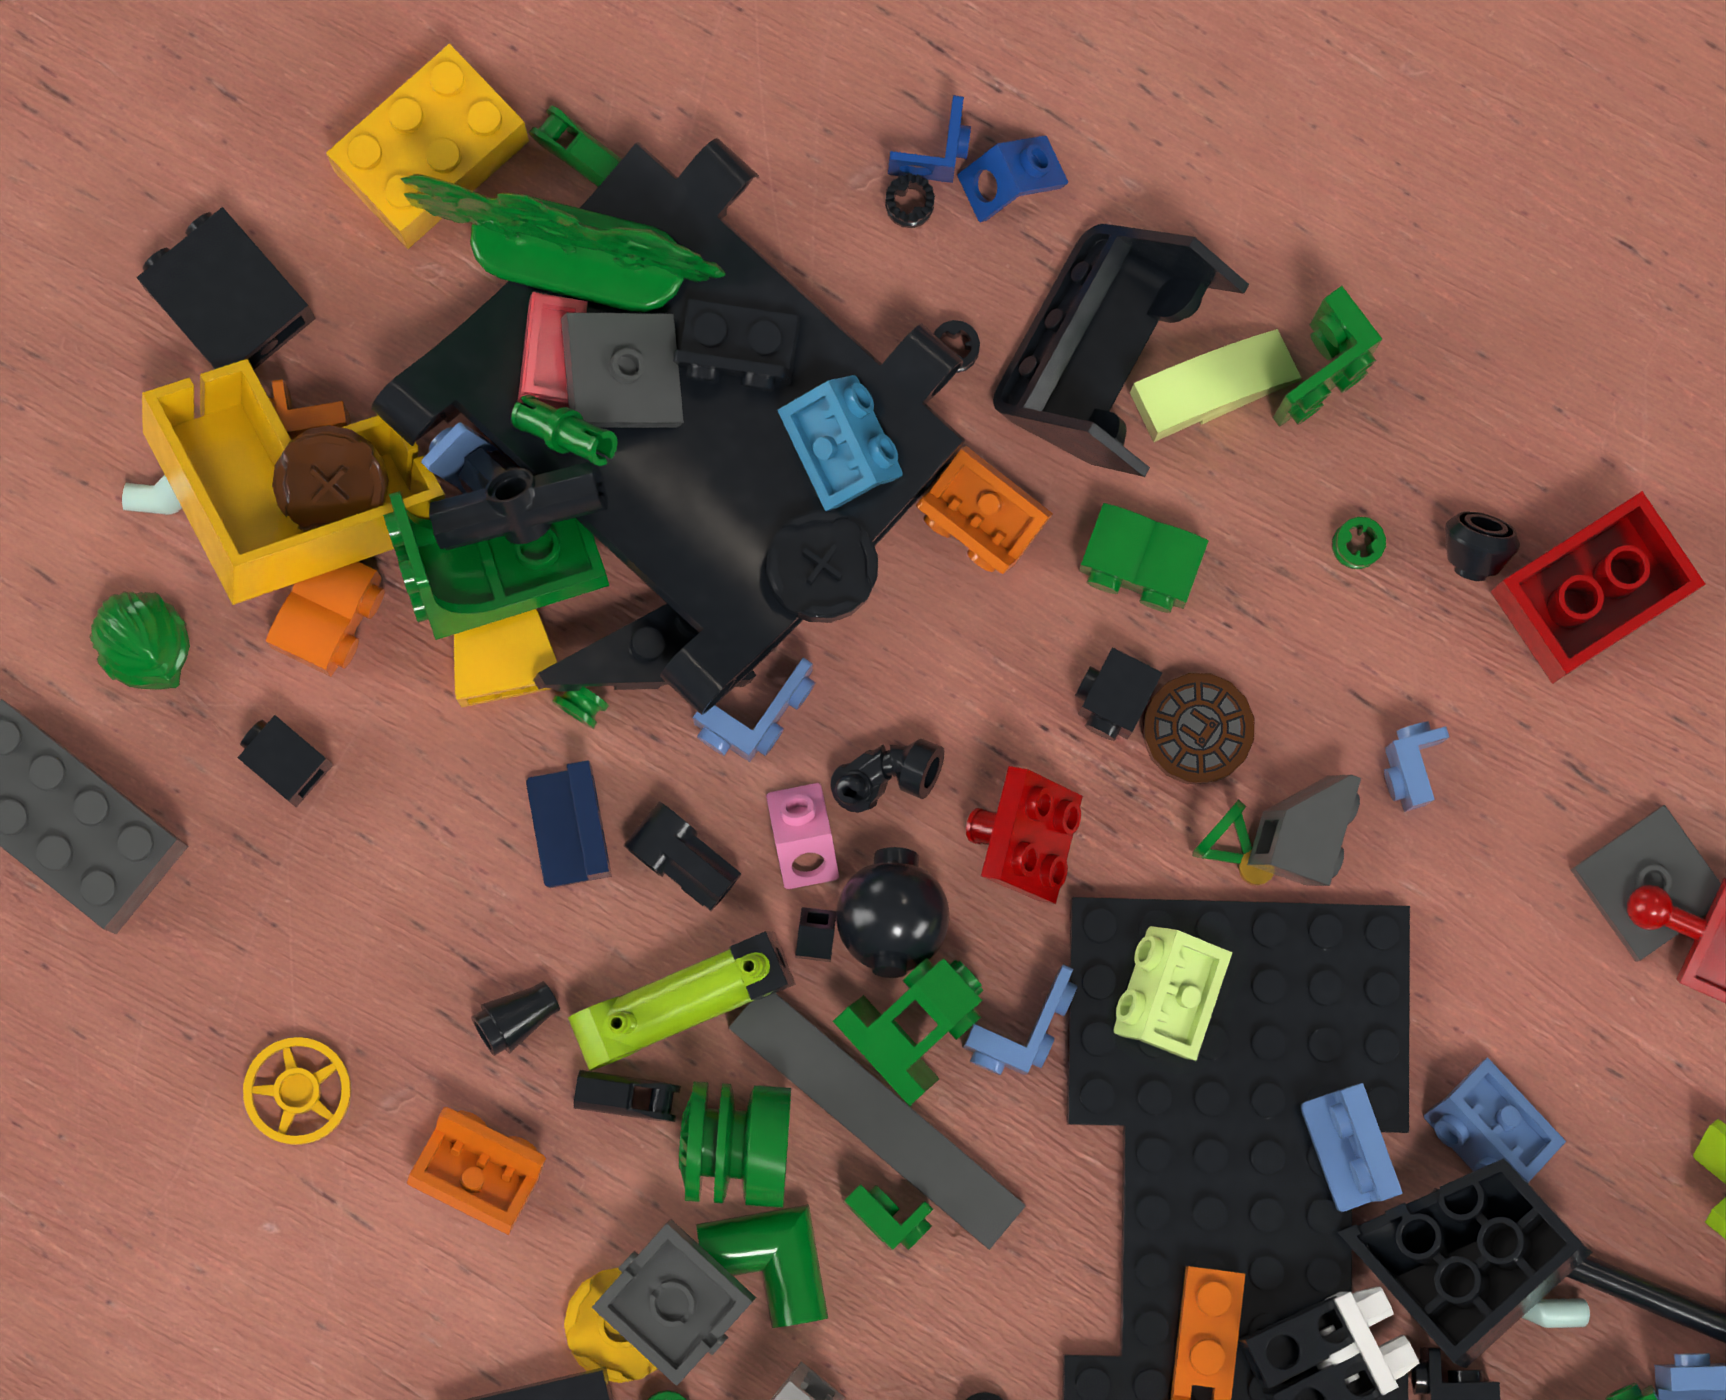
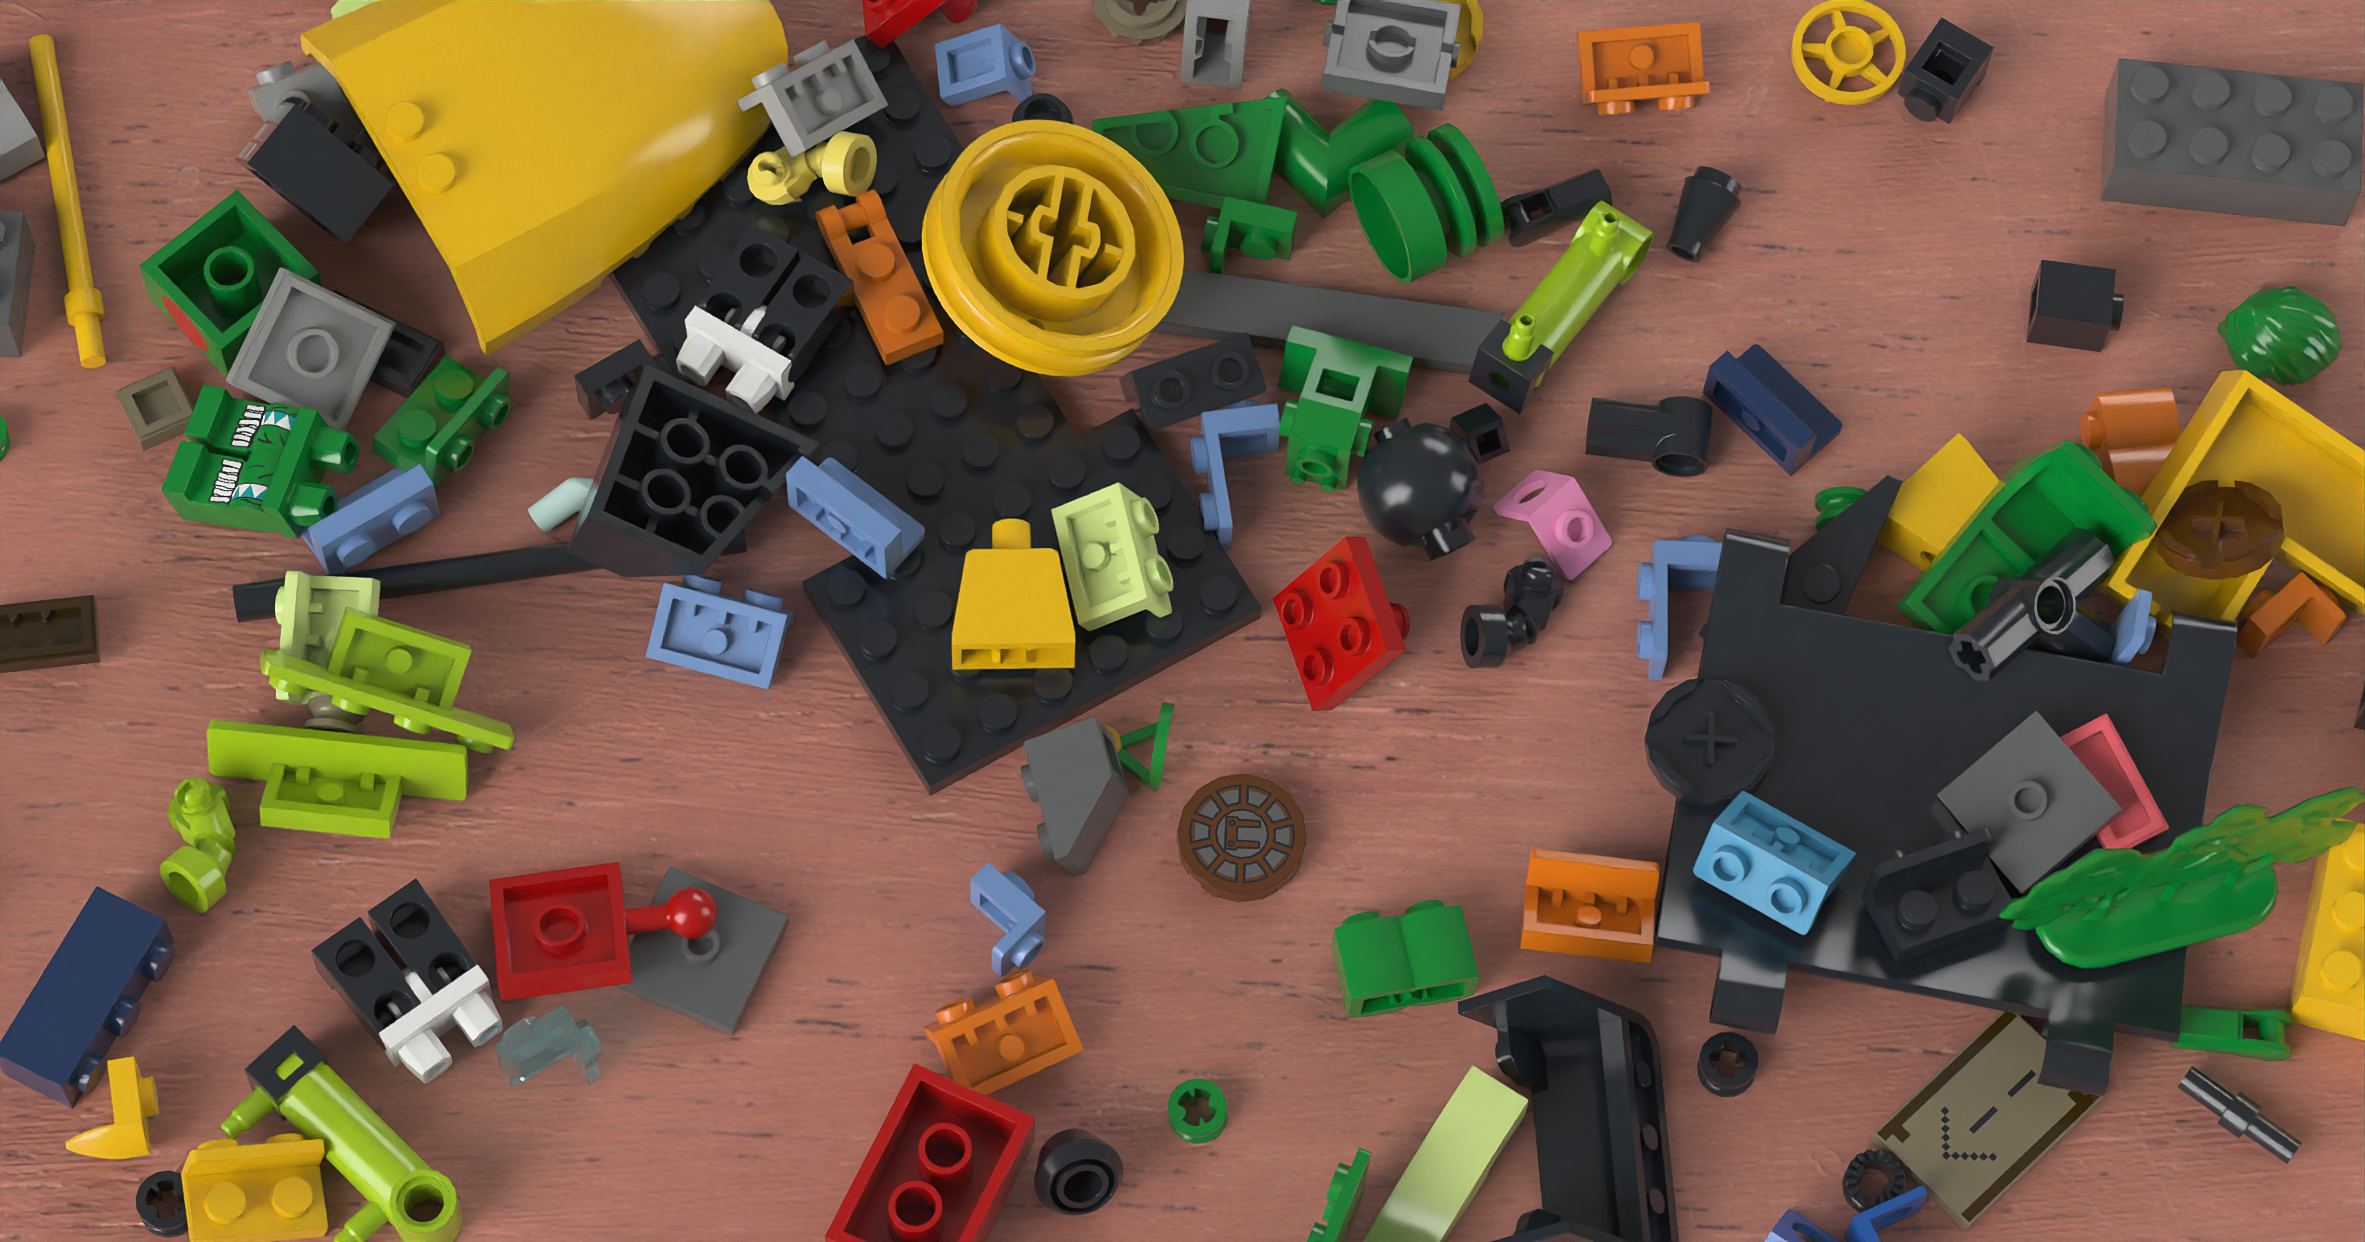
camera: 150 degrees right, 15 degrees down
(220, 1016) = (1944, 72): none -> black brick
(564, 430) = (2041, 688): green pin -> none
(616, 89) = (2239, 1114): none -> black bar
(810, 195) = (1982, 1121): none -> dark tan tile
(889, 1313) = (1205, 149): none -> green wing
(1012, 1111) = (1195, 382): none -> black bracket
(1017, 1257) = (1087, 253): none -> yellow wheel
(1116, 695) = (1343, 814): black brick -> none
(1274, 998) = (1012, 606): none -> yellow torso
(1470, 681) = (1004, 1034): none -> orange bracket

